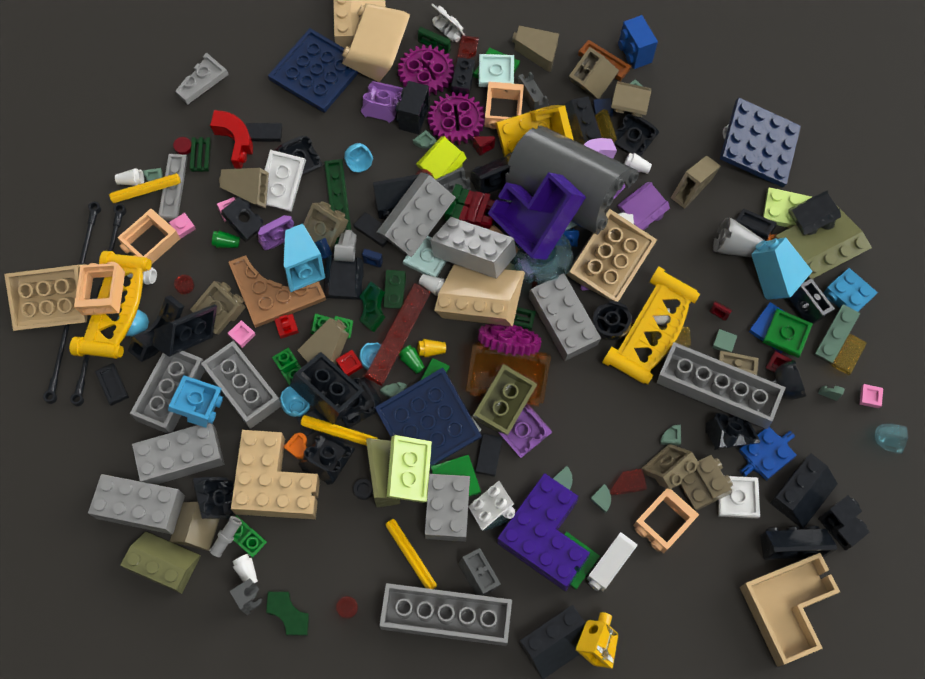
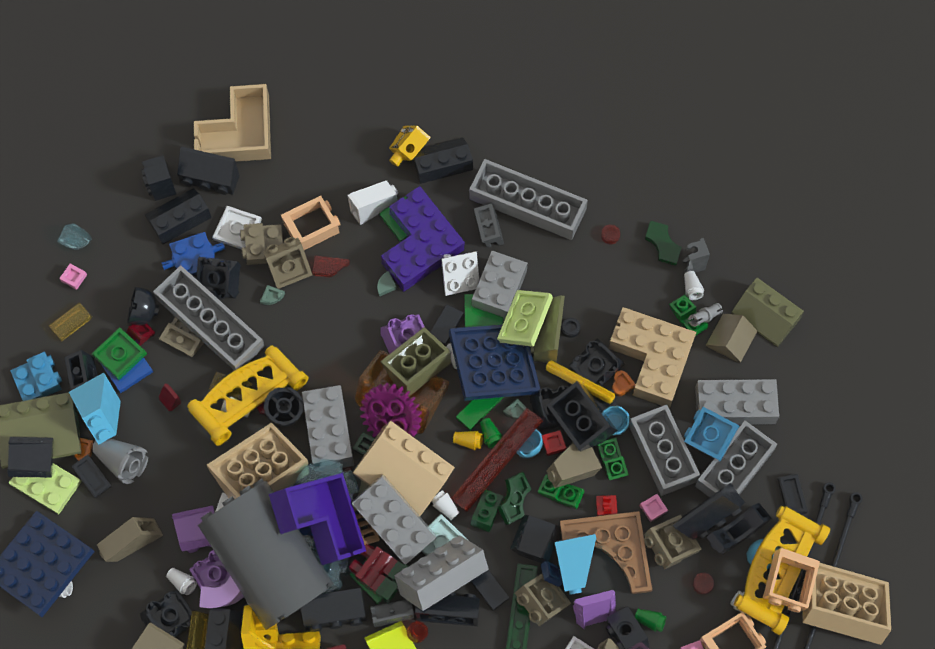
camera: 160 degrees left, 0 degrees up
(136, 504) = (776, 359): light grey brick -> none
(214, 497) = (709, 351): black slope -> none
(346, 247) = (526, 557): light grey piece -> none
(372, 258) = (500, 551): dark blue tile -> none
(410, 554) = (543, 259): yellow axle -> none
(602, 498) = (357, 259): sand green tile -> none
(724, 341) = (181, 367): sand green tile -> none
(832, 393) = (107, 290): sand green tile -> none
(837, 333) = (72, 339): sand green plate -> none

